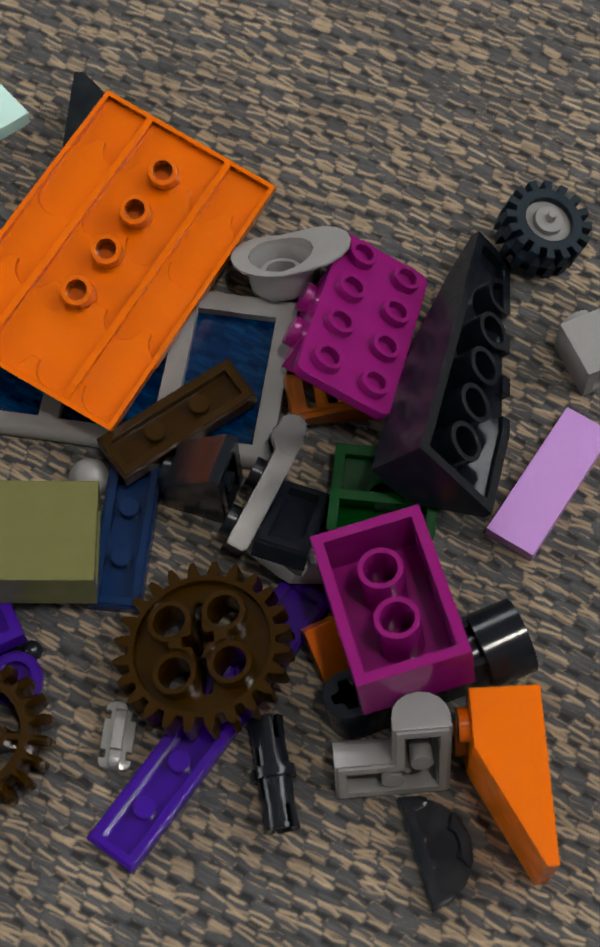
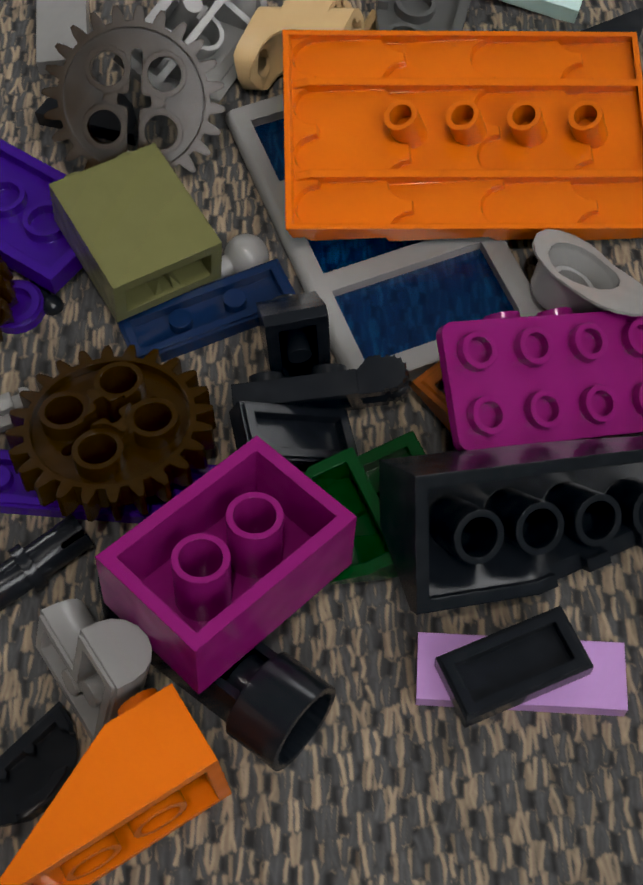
camera: 60 degrees right, 5 degrees down
(182, 415) = (346, 285): dark brown tile -> none
(548, 482) = (513, 666): none -> black tile

